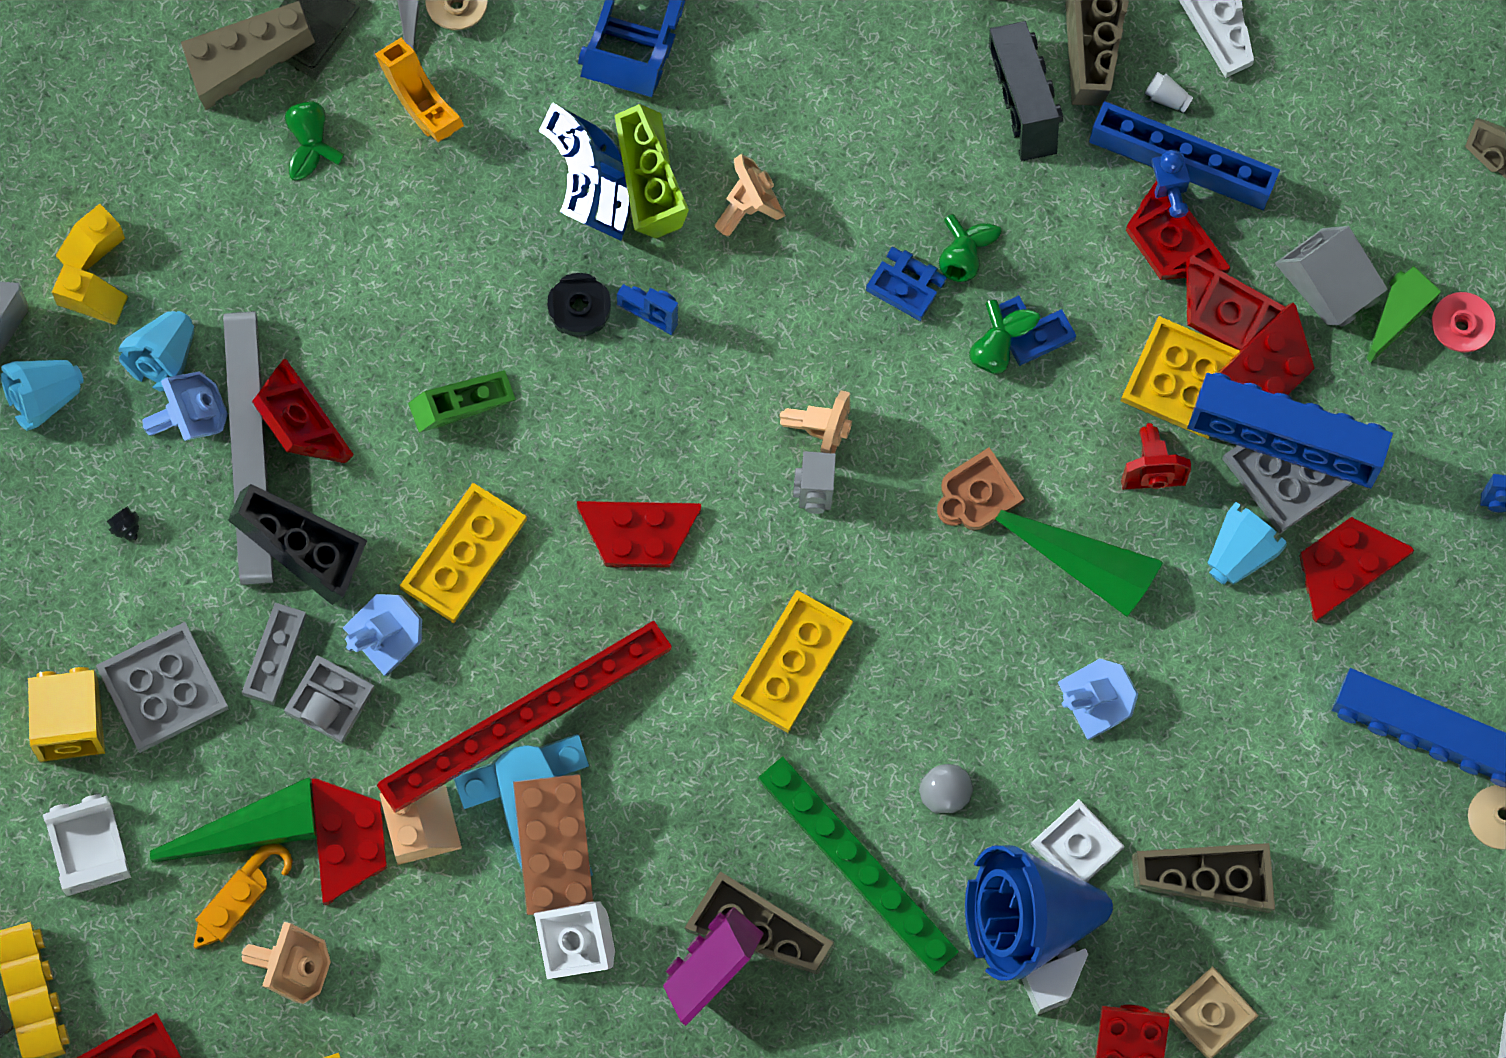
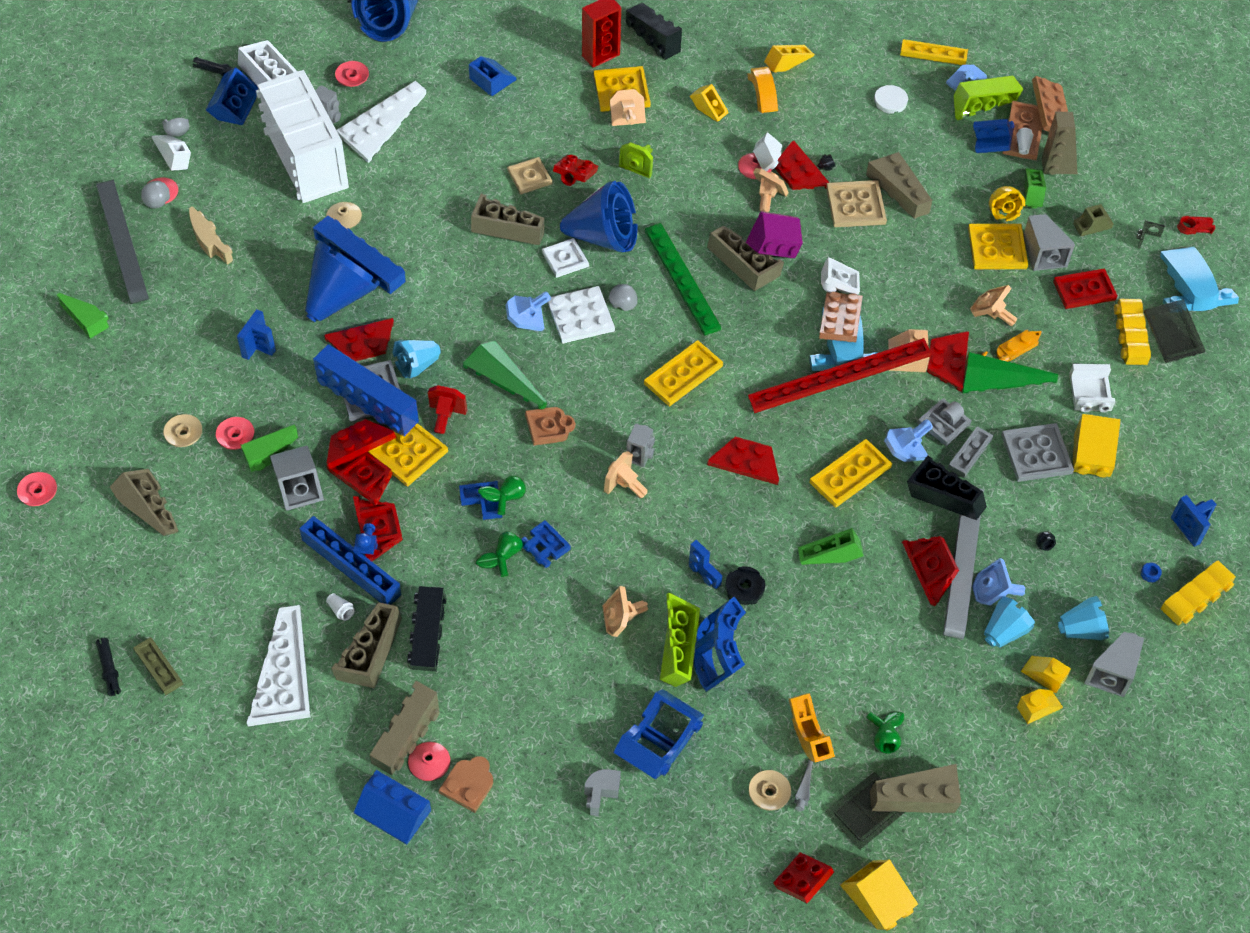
camera: 160 degrees left, 15 degrees down
(1006, 731) = (580, 314): none -> white plate
(1434, 642) = (335, 283): none -> blue cone

